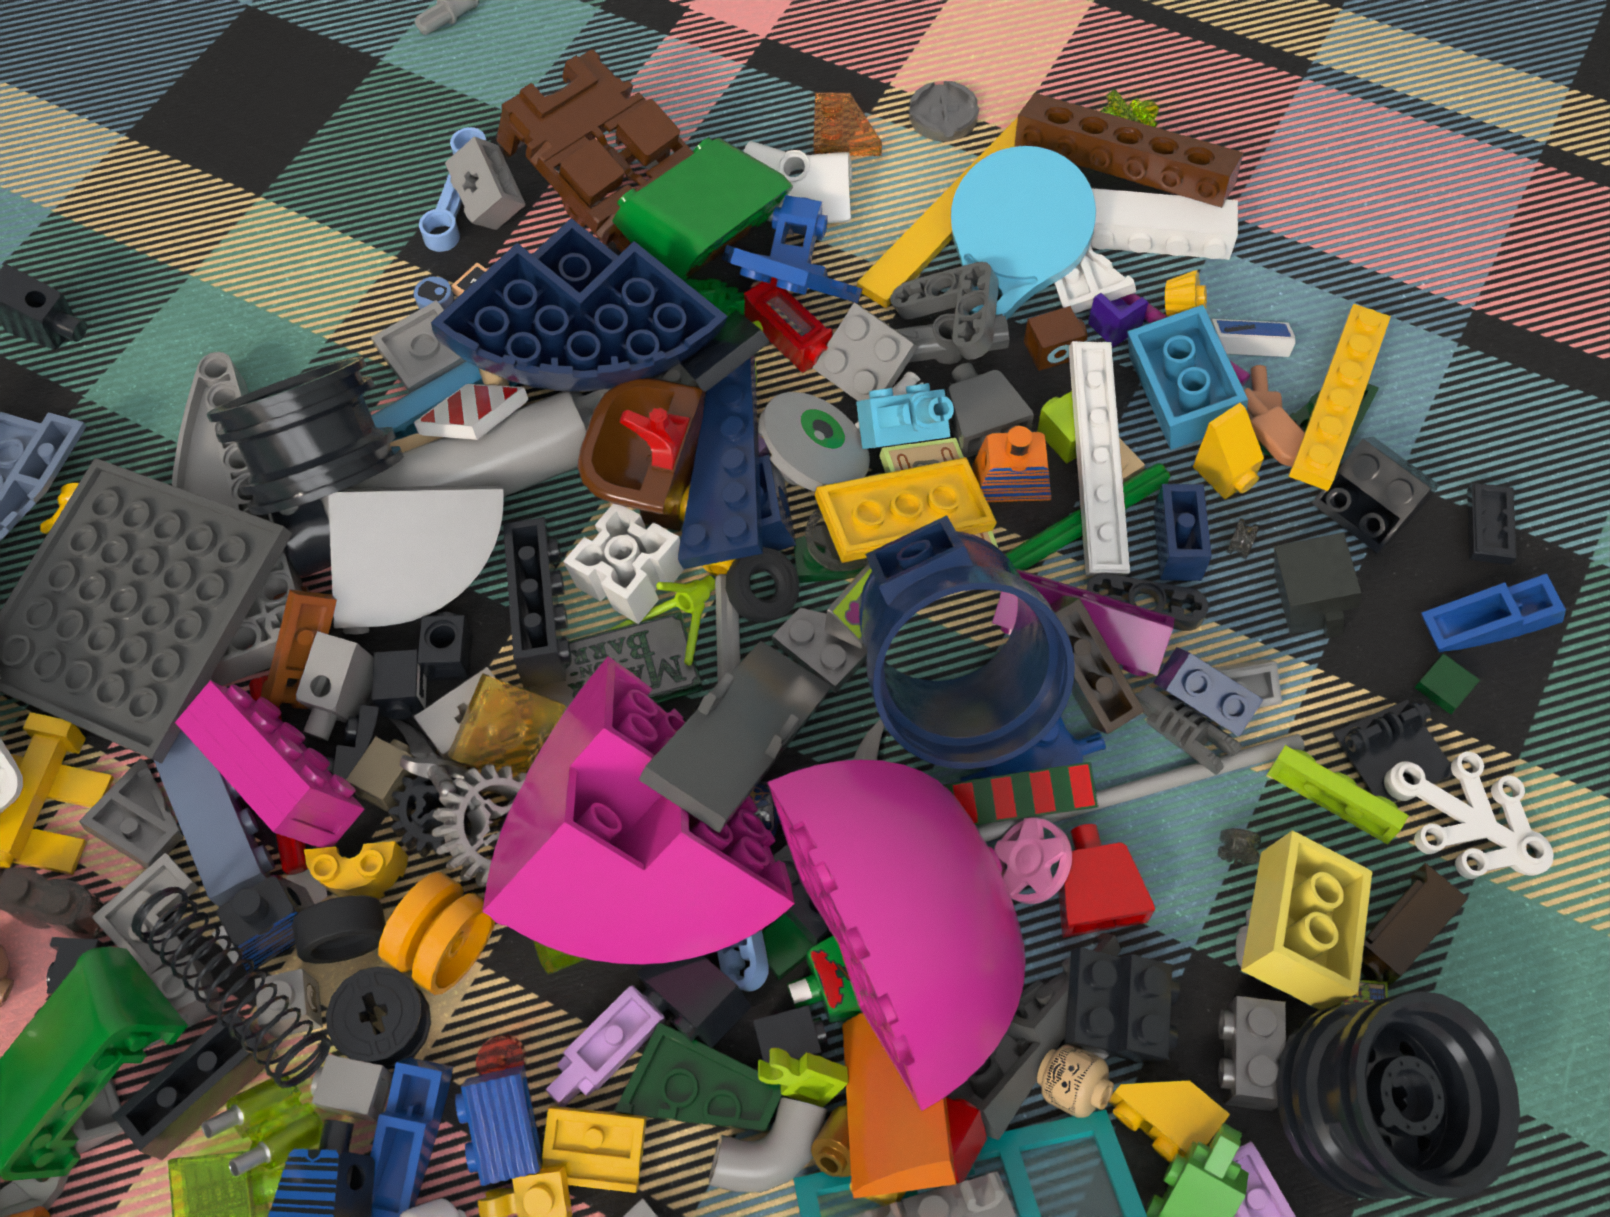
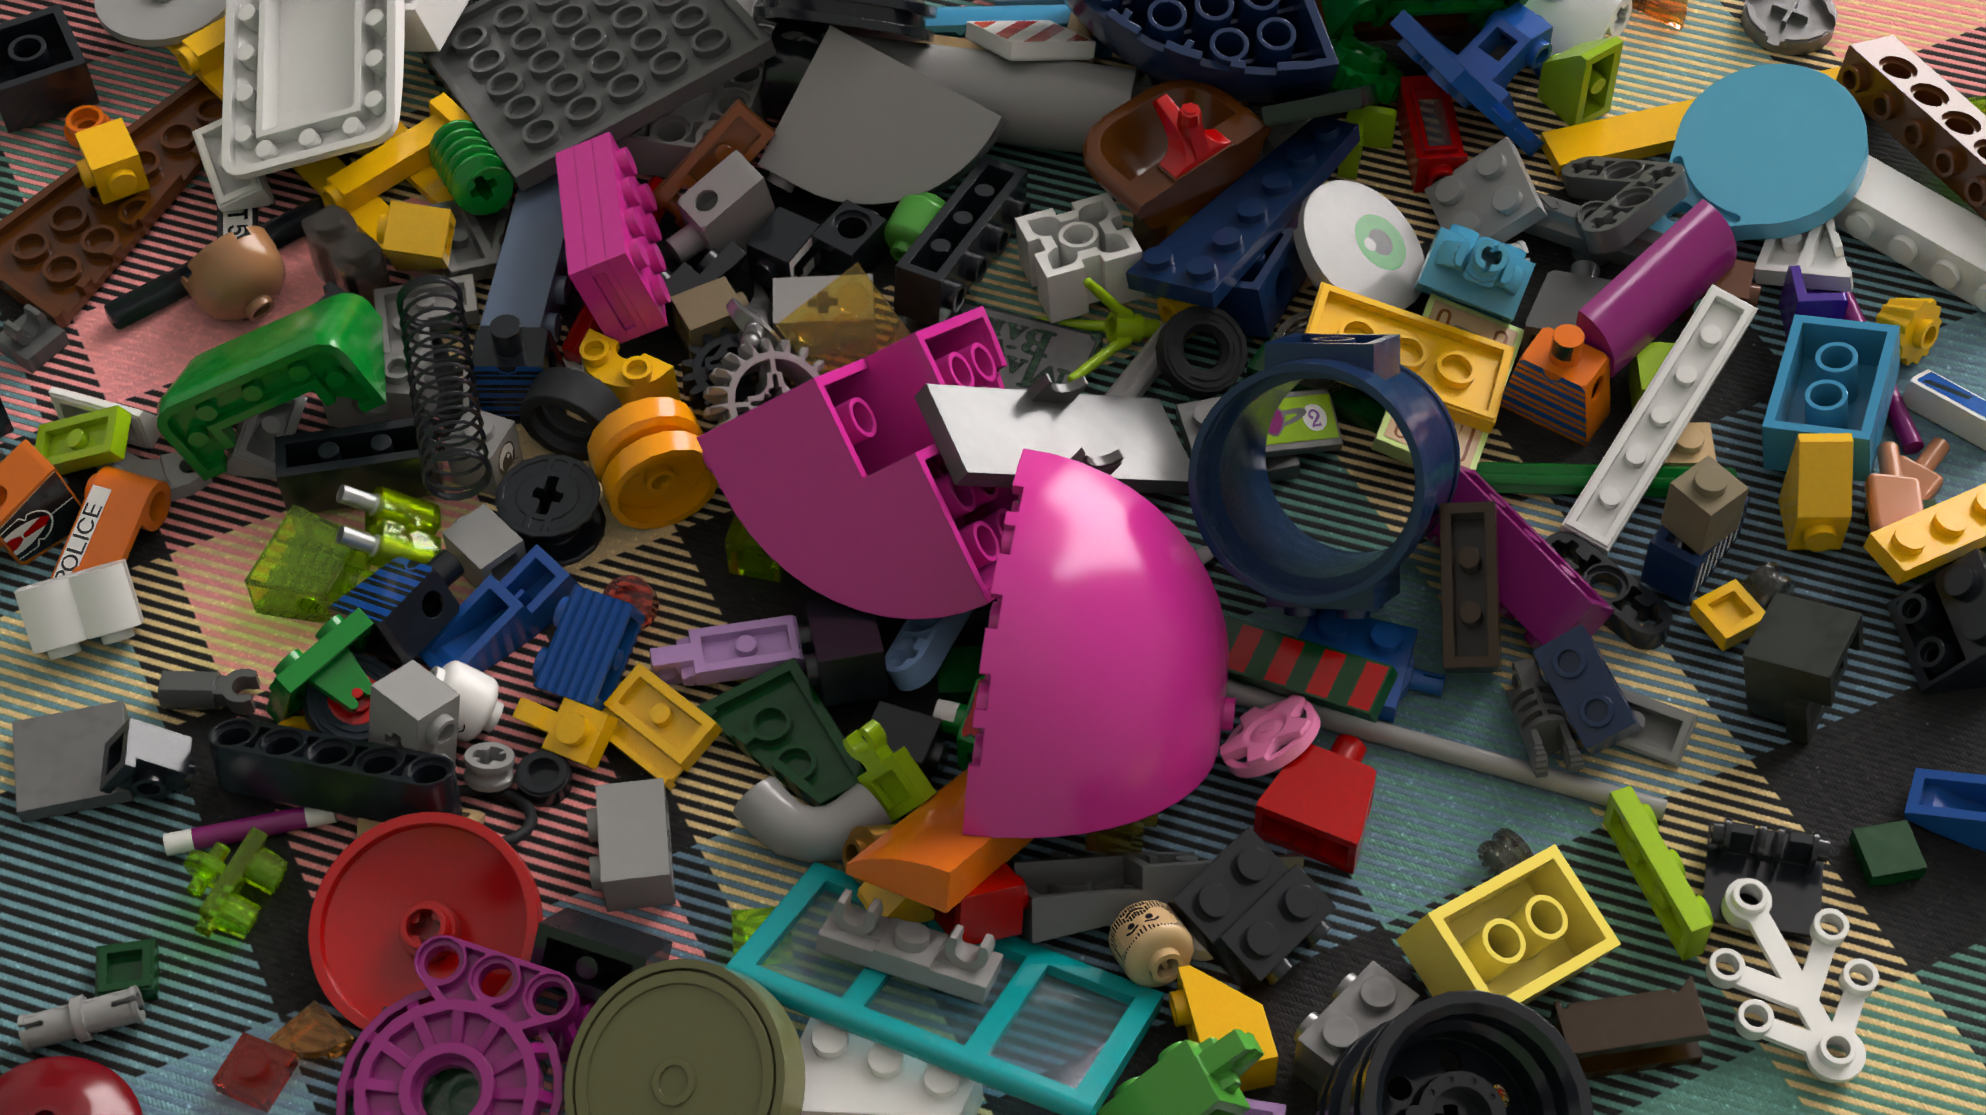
camera: 35 degrees right, 10 degrees down
(100, 766) = (470, 168): none -> green piece
(101, 856) = (416, 236): none -> yellow slope
(487, 606) = (909, 221): none -> bright green head
(857, 228) = (1581, 80): none -> lime slope
(1035, 360) = (1658, 285): none -> magenta brick
(1195, 512) = (1704, 505): none -> dark tan brick
(1235, 572) = (1727, 614): none -> yellow plate

